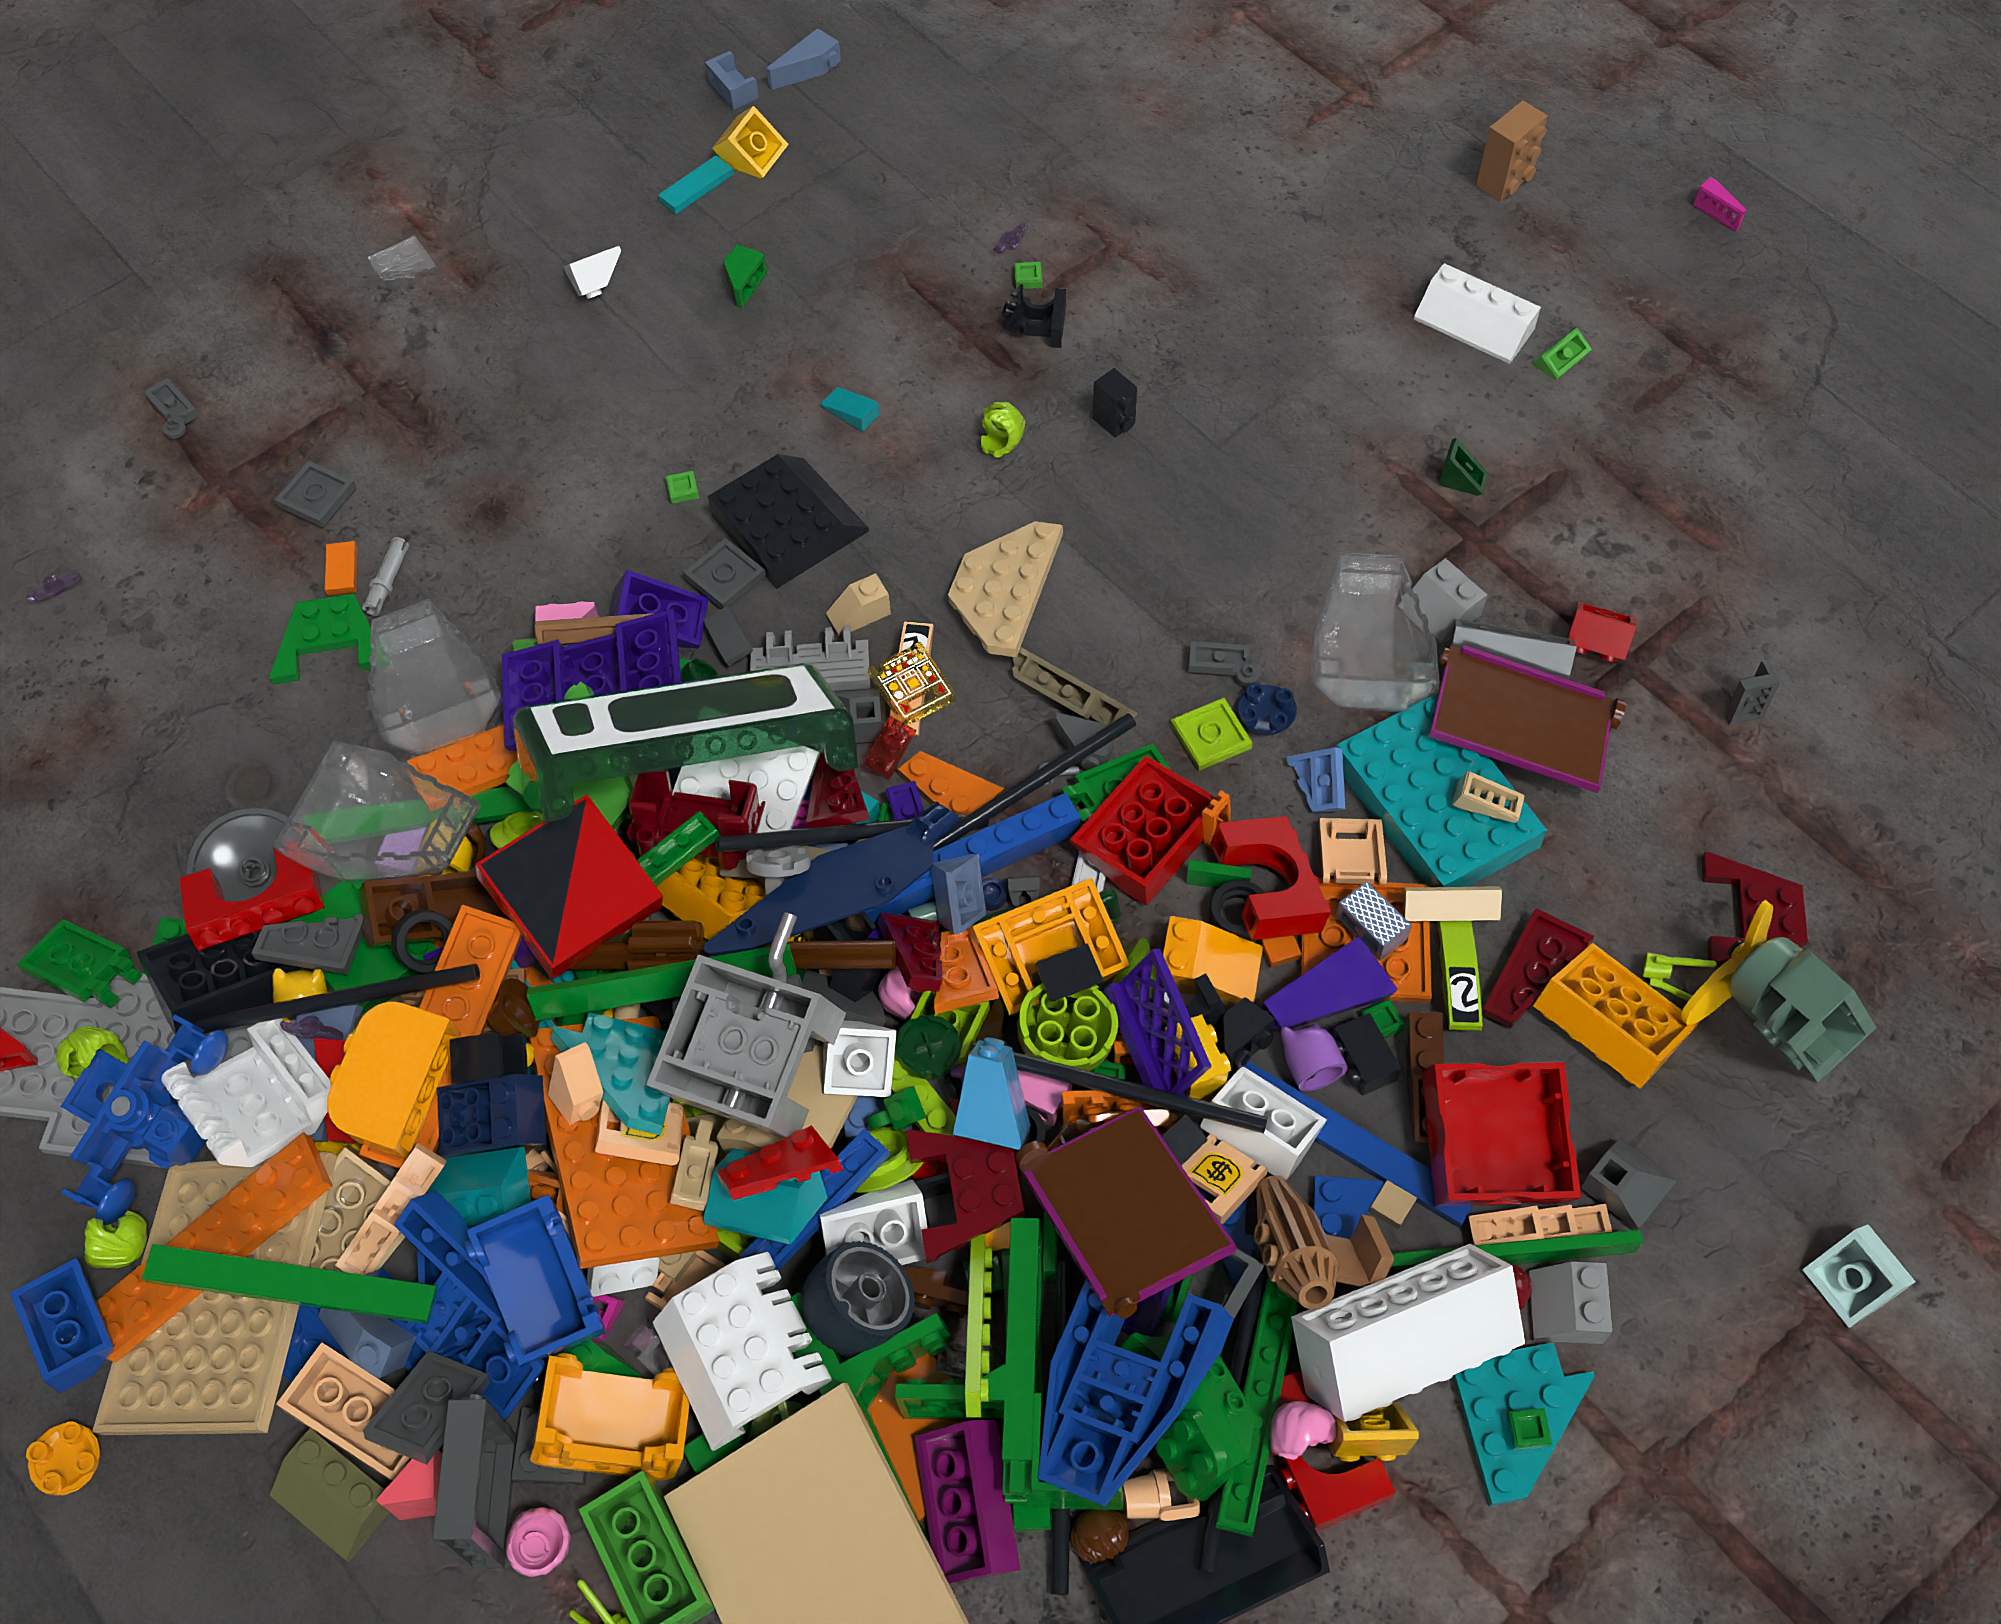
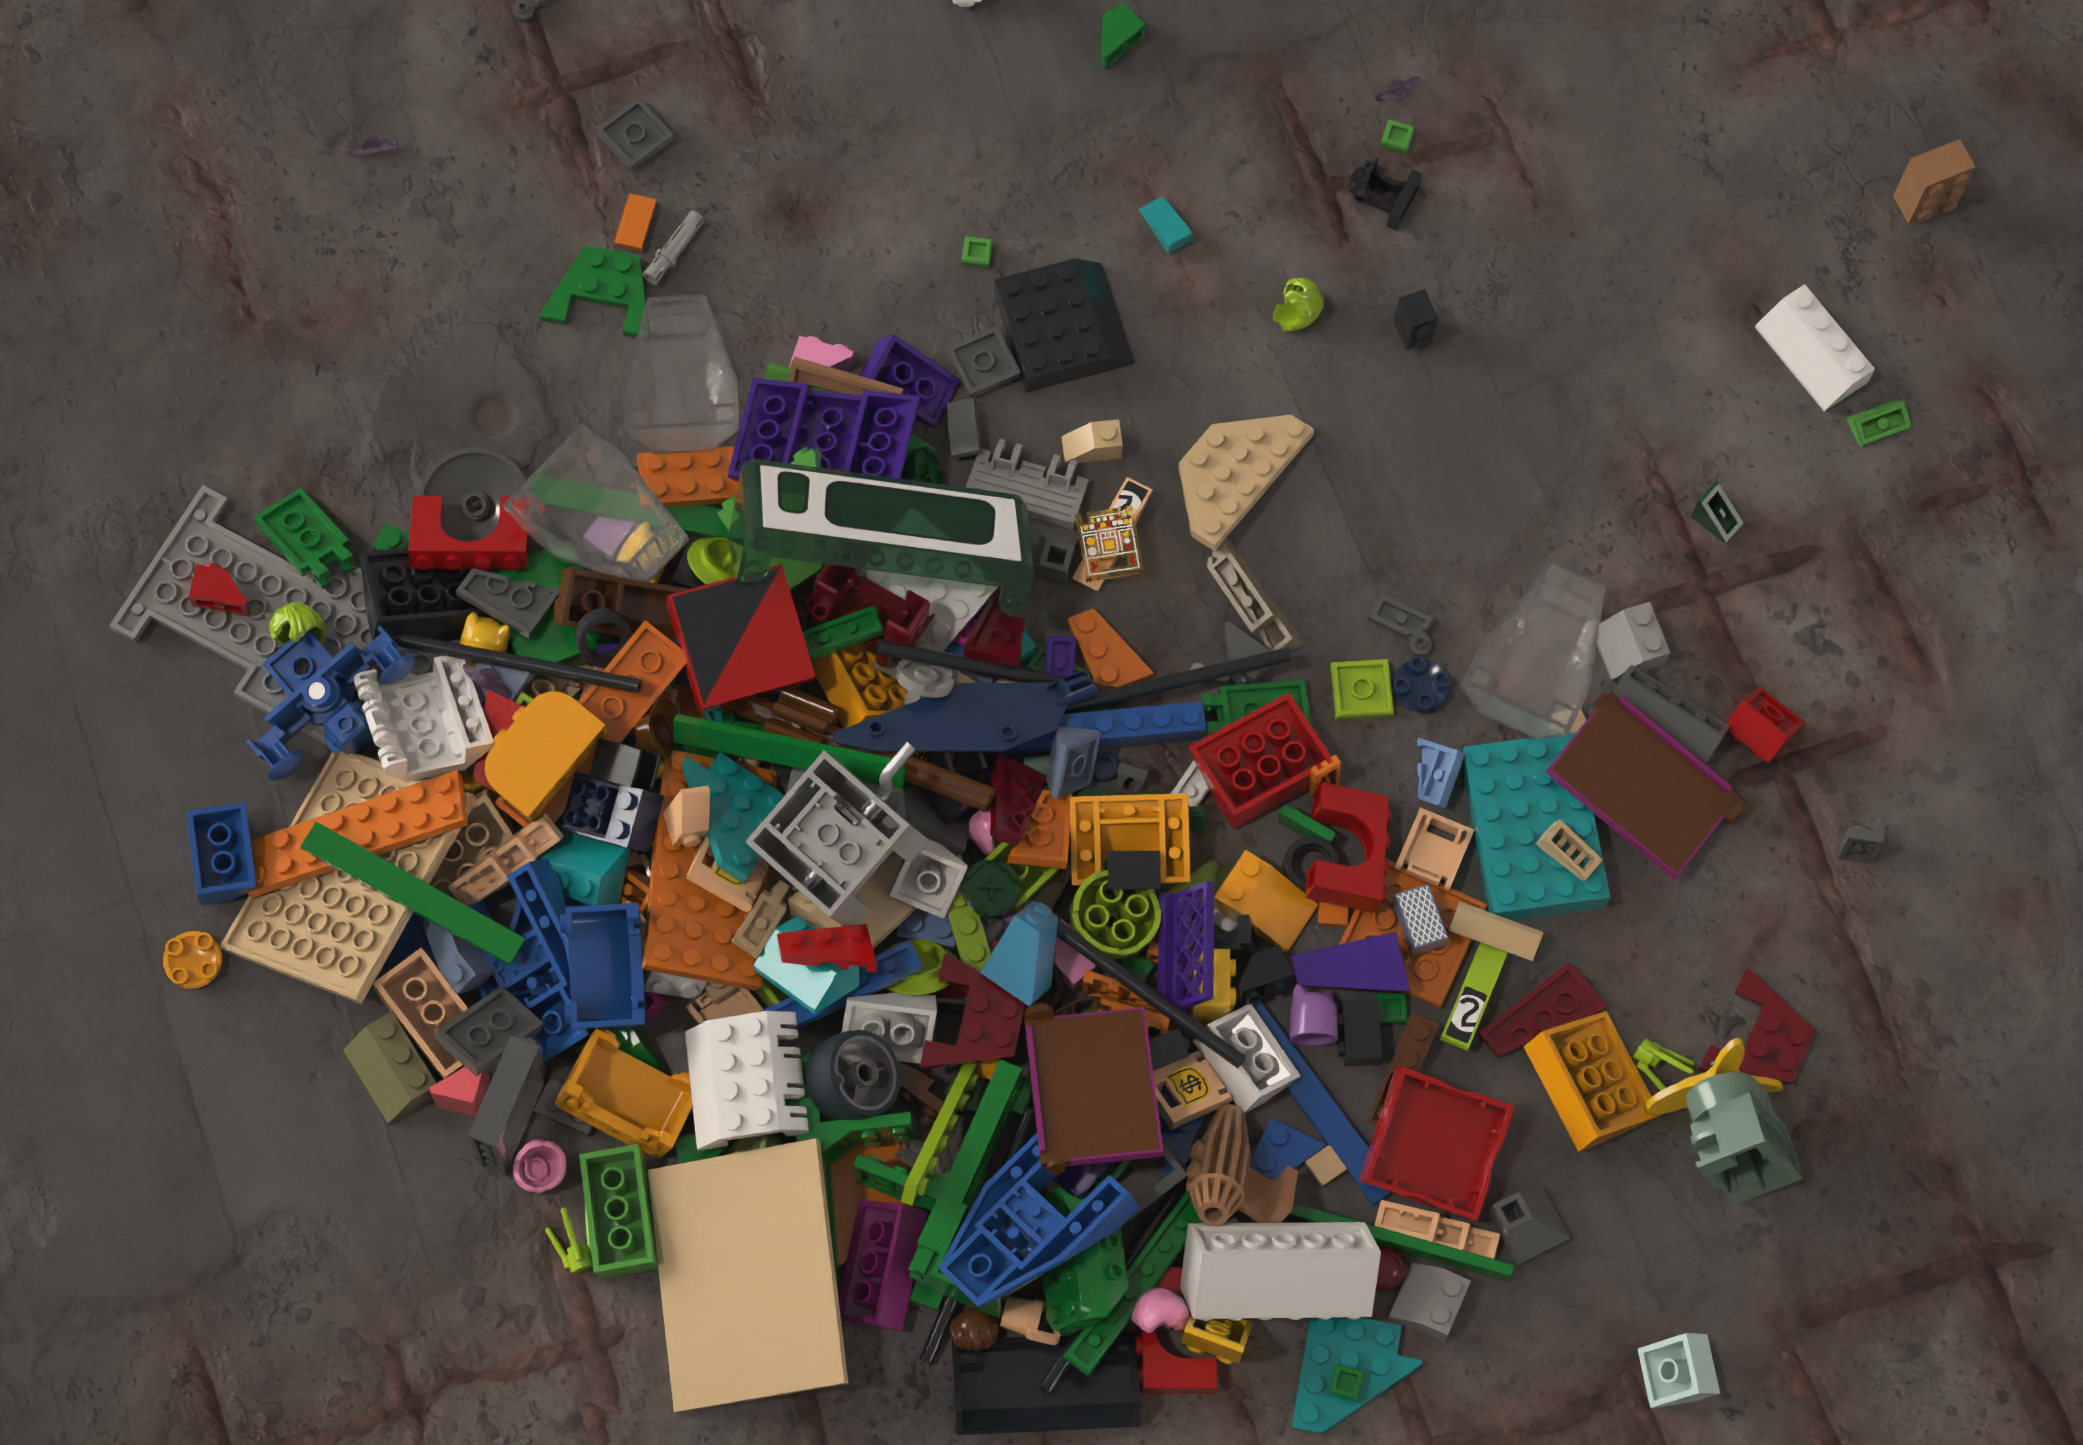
camera: 15 degrees right, 10 degrees up
(115, 1246) = (277, 801): lime hair -> none
(890, 747) = (1066, 596): clear red hips -> none
(902, 1111) = (949, 934): green plate -> none

